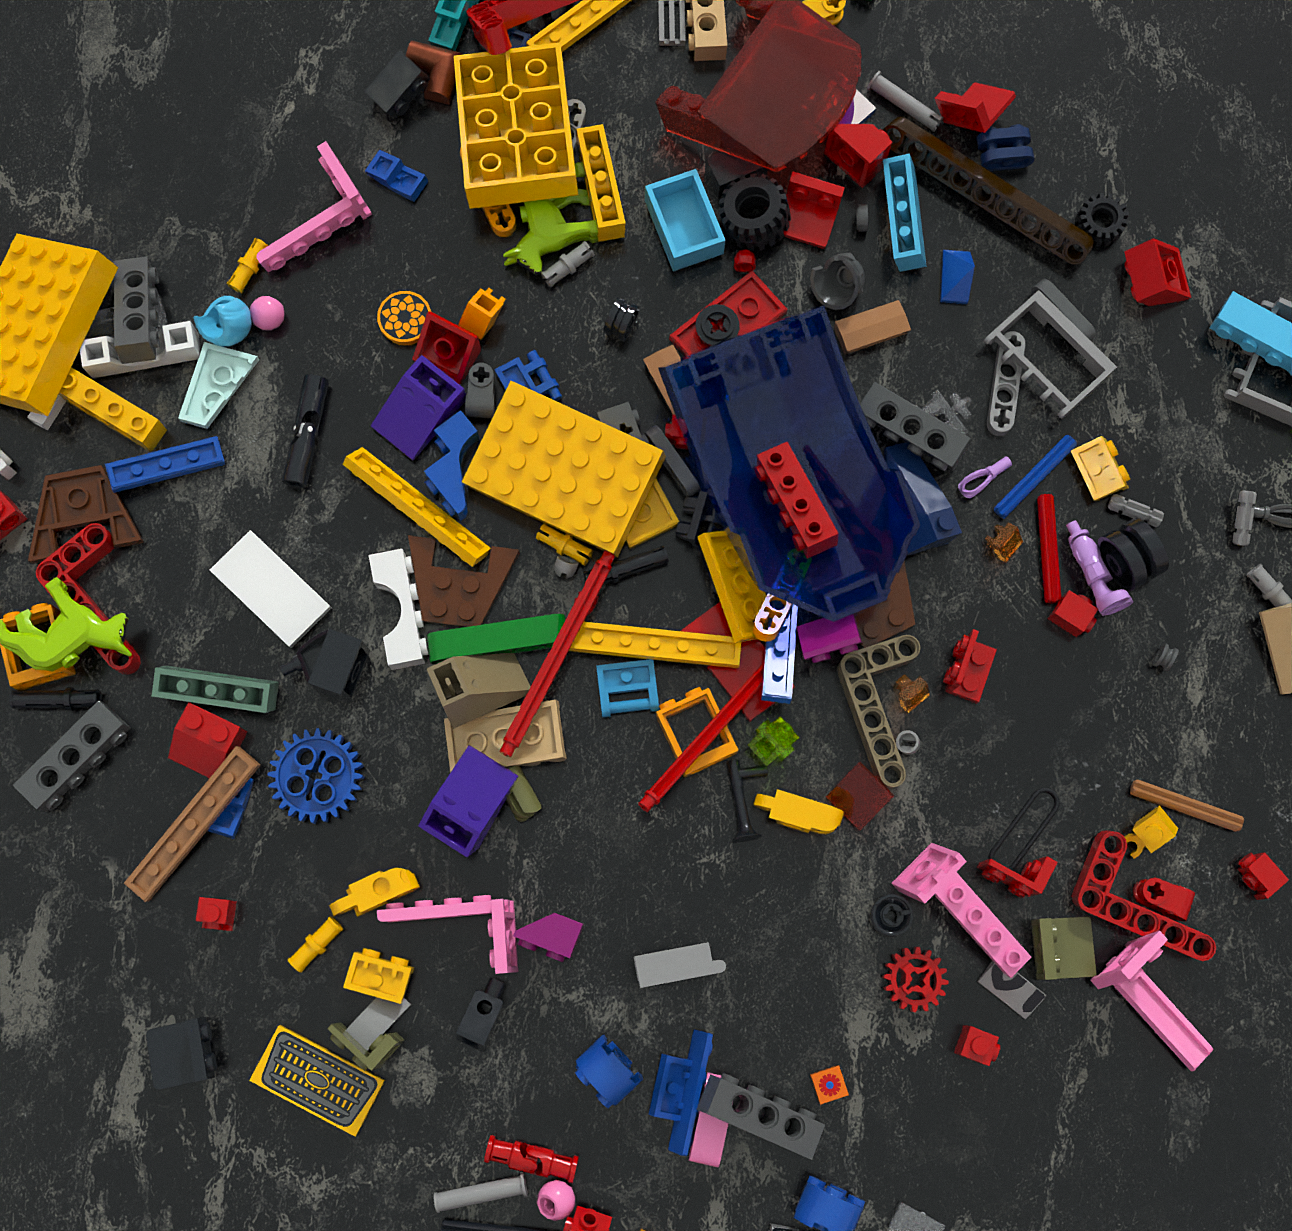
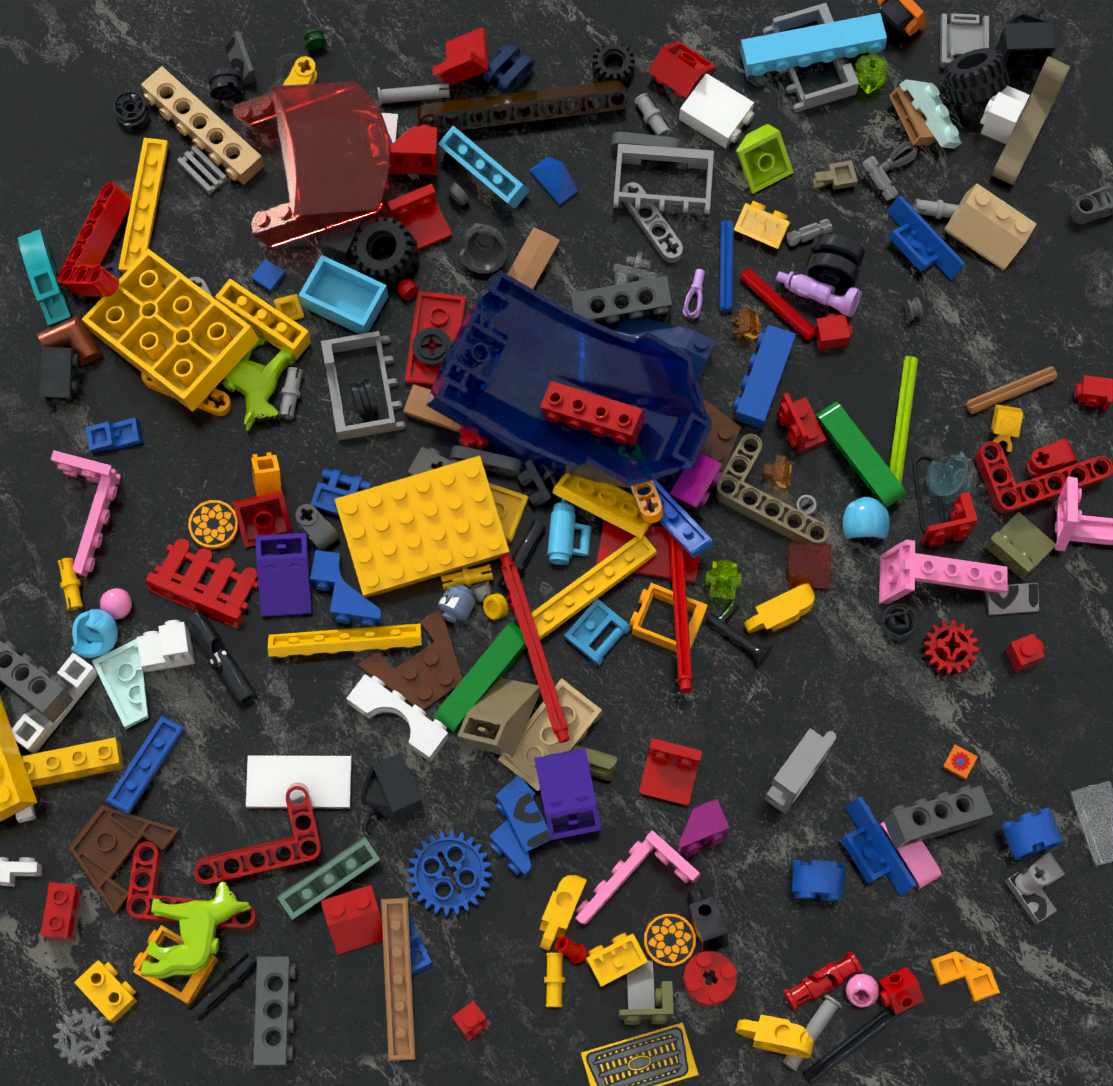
camera: 40 degrees left, 5 degrees down
(192, 621) = (268, 849): none -> red beam
(270, 383) = (166, 649): none -> white brick
(343, 347) = (185, 593): none -> red fence
(353, 937) = (575, 951): none -> red pin
(392, 792) = (503, 838): none -> blue arch
(411, 793) = (526, 821): none -> slope
(420, 1065) = (694, 982): none -> red brick
(440, 1001) = (669, 940): none -> tile
(447, 1171) = (777, 1036): none -> yellow piece
(534, 558) = (457, 603): none -> sand blue head
(565, 590) = (495, 606): none -> yellow tile
(573, 862) = (670, 772): none -> red bracket
(623, 264) = (350, 343): none -> light grey hinge
(632, 193) = (289, 306): none -> yellow slope
(642, 152) = (268, 275): none -> blue tile
(677, 579) = (562, 534): none -> medium azure piece
(946, 801) = (866, 519): none -> medium azure piece
(975, 600) = (764, 377): none -> blue brick
(995, 742) = (861, 455): none -> green beam
(1058, 749) = (903, 416): none -> lime axle
(1058, 837) = (955, 478): none -> clear light blue helmet
(1093, 292) = (652, 115): none -> light grey pin
(1153, 336) = (716, 111): none -> white brick
(1156, 411) = (763, 158): none -> lime slope
(1209, 484) = (838, 174): none -> dark tan plate
(1228, 604) = (920, 241): none -> blue bracket

